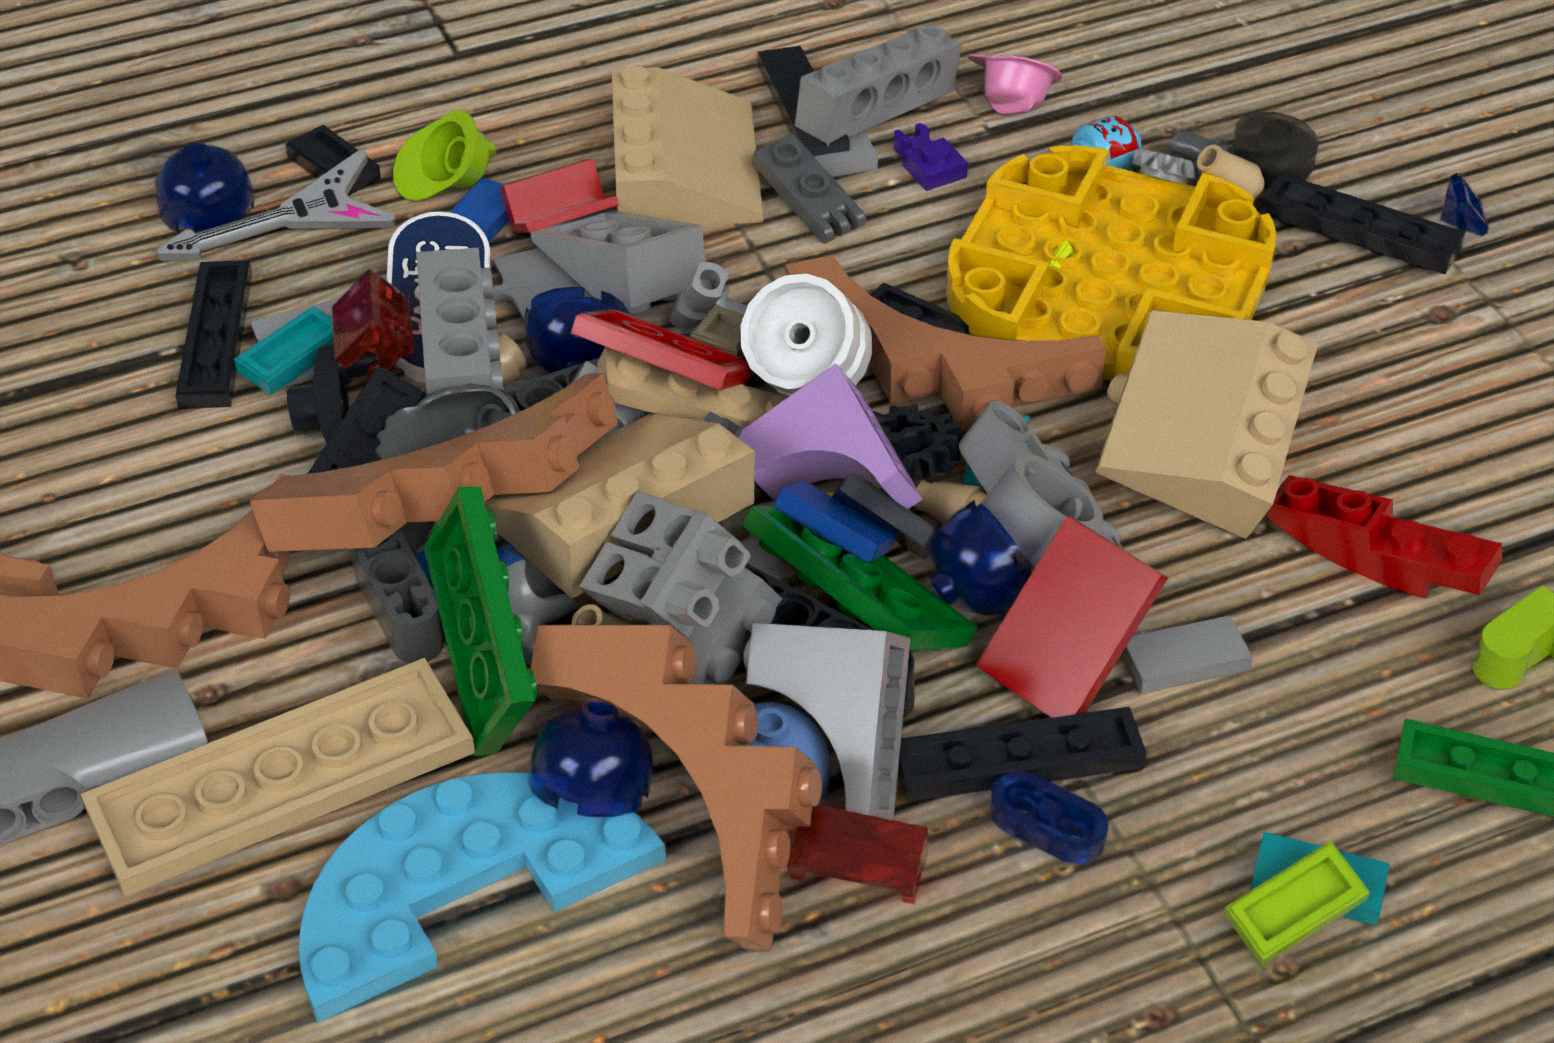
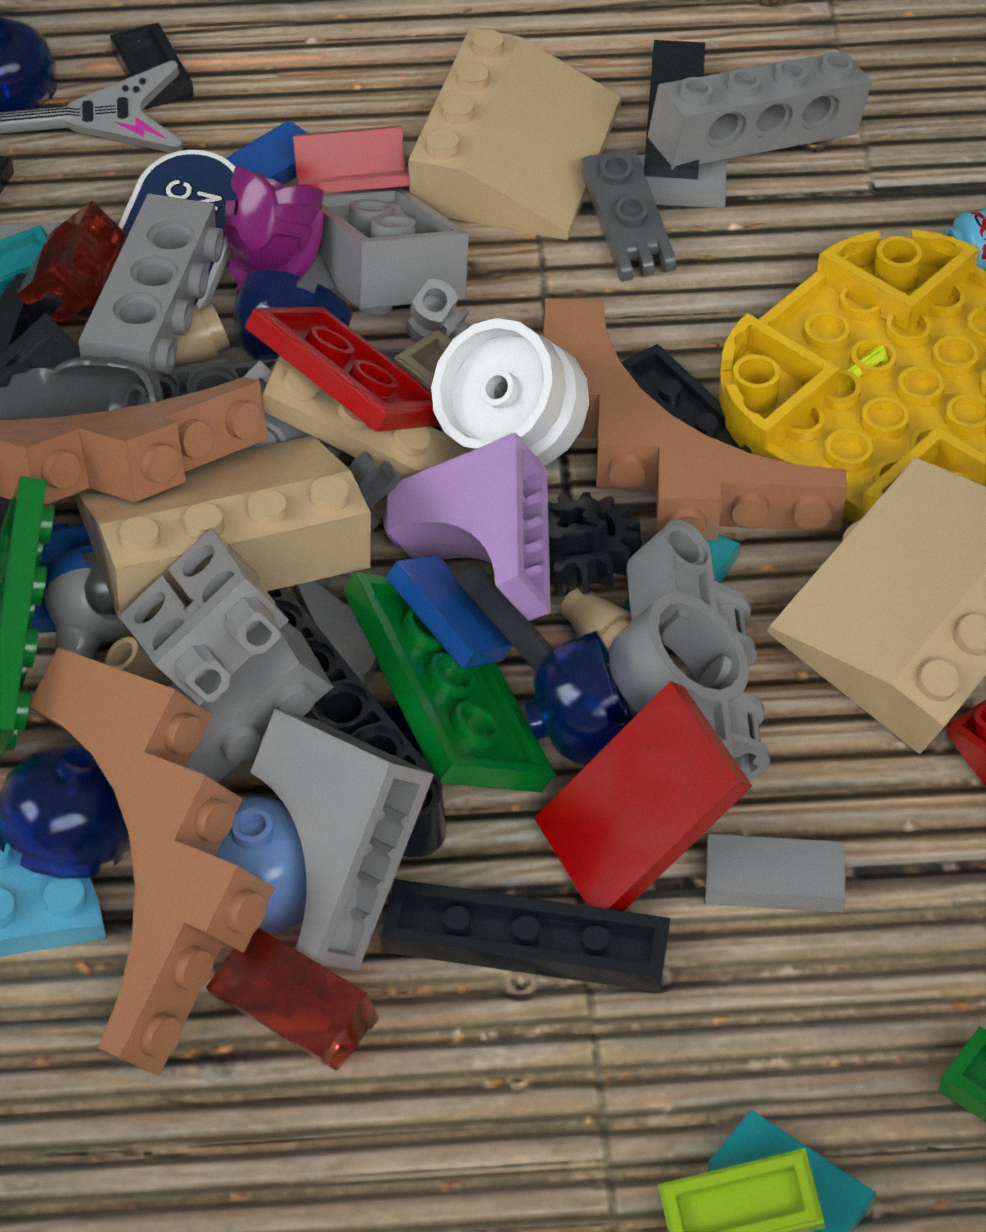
camera: 20 degrees right, 5 degrees up
(442, 157) = (255, 89): lime piece -> none
(531, 259) = (272, 225): none -> magenta helmet
(929, 161) = (784, 211): dark purple plate -> none
(1016, 82) = (920, 144): bright pink piece -> none
(1050, 817) = (524, 1022): clear blue plate -> none

